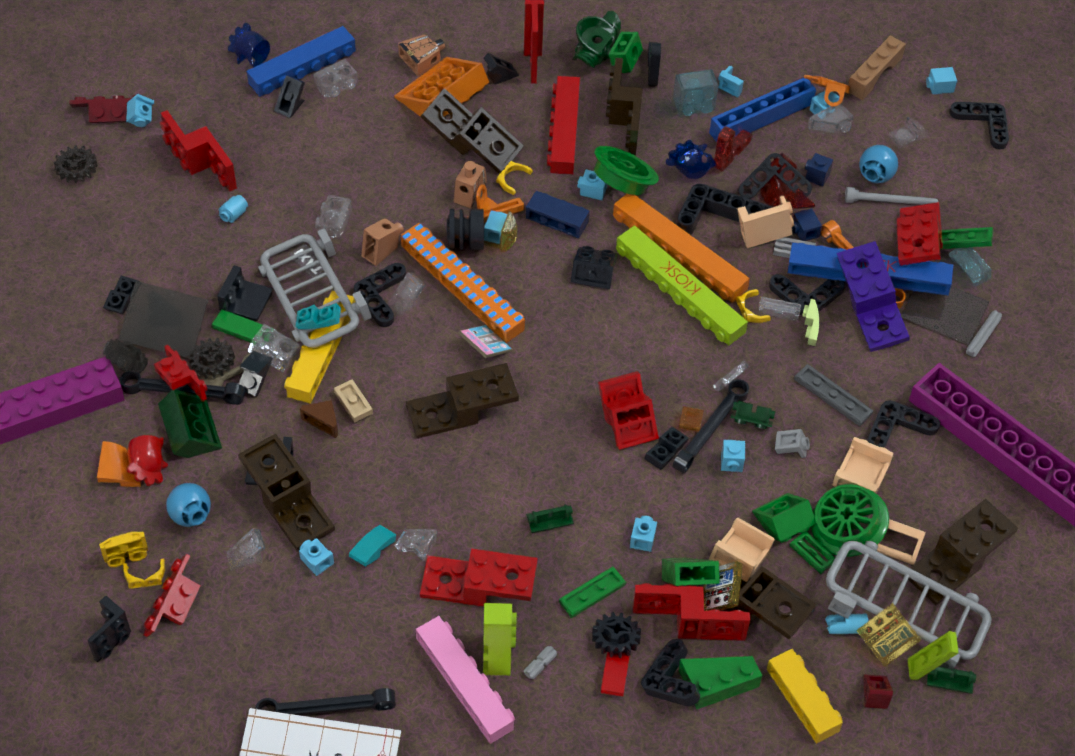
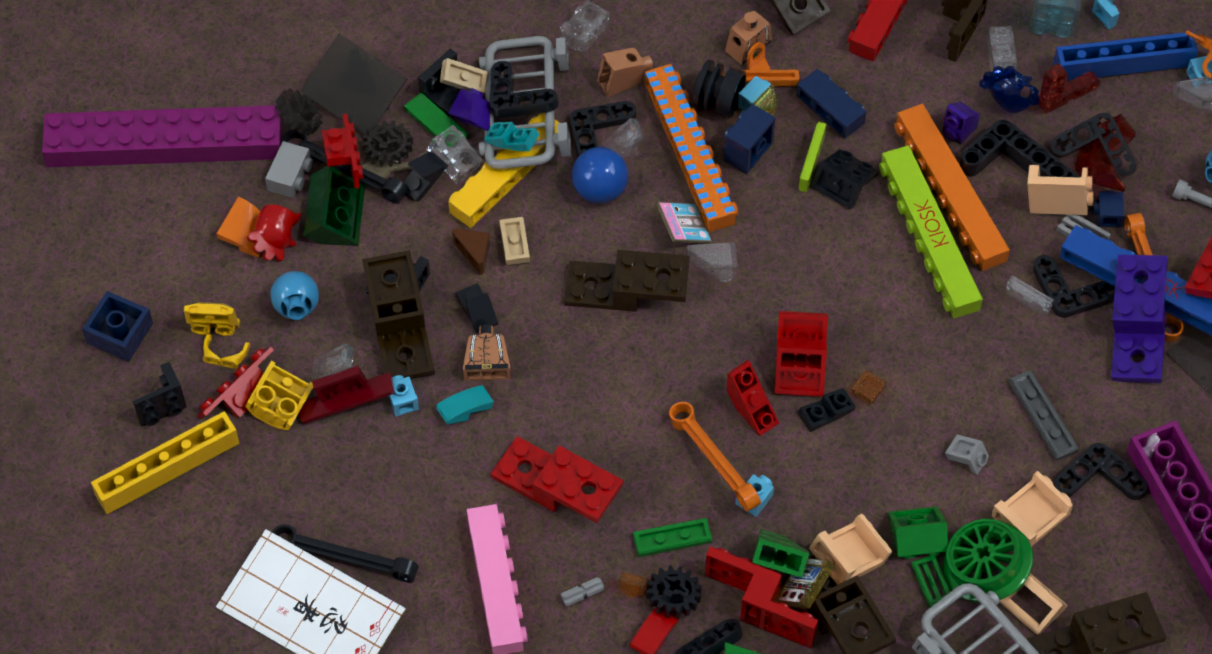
camera: 25 degrees right, 5 degrees up
(42, 583) = (117, 326): none -> dark blue brick
(119, 298) = (319, 44): black slope -> none
(134, 684) = (165, 462): none -> yellow brick
(136, 406) = (288, 169): none -> light grey brick
(211, 594) = (278, 397): none -> yellow slope
(254, 284) = (463, 75): none -> tan plate
(266, 570) = (343, 392): none -> dark red bracket
(272, 308) = (472, 109): none -> dark purple slope
(299, 289) = (507, 96): none -> black beam
(307, 259) = (535, 66): clear tile -> none
(346, 464) = (477, 306): none -> black slope
(373, 500) = (486, 356): none -> nougat torso
(402, 325) = (600, 175): none -> blue piece
(418, 541) = (512, 417): clear slope -> none
(498, 638) = (545, 549): lime wedge -> none
(507, 259) = (749, 138): none -> dark blue brick
(509, 168) = (807, 30): yellow cap -> none
(525, 361) = (715, 260): none -> clear slope
(550, 518) = (663, 442): dark green hinge -> none
(562, 259) = (812, 157): none -> lime tile
(580, 641) = (633, 585): none -> clear orange plate
(592, 185) = (888, 82): medium azure brick -> none
(604, 459) = (750, 398): none -> red slope
(623, 170) = (926, 76): green piece -> none
(641, 534) = (744, 491): none -> orange piece
(663, 197) = (959, 122): none -> dark purple slope
(667, 133) = (1001, 47): none -> clear brick
(686, 456) = (841, 428): black piece -> none
(730, 376) = (933, 354): clear tile -> none
(733, 455) = (893, 444): medium azure brick -> none
(747, 314) = (991, 292): yellow cap -> none
(760, 418) = (945, 413): dark green hinge -> none
(812, 320) = (1058, 317): yellowish green slope -> none
(818, 169) = (1156, 147): dark blue brick -> none

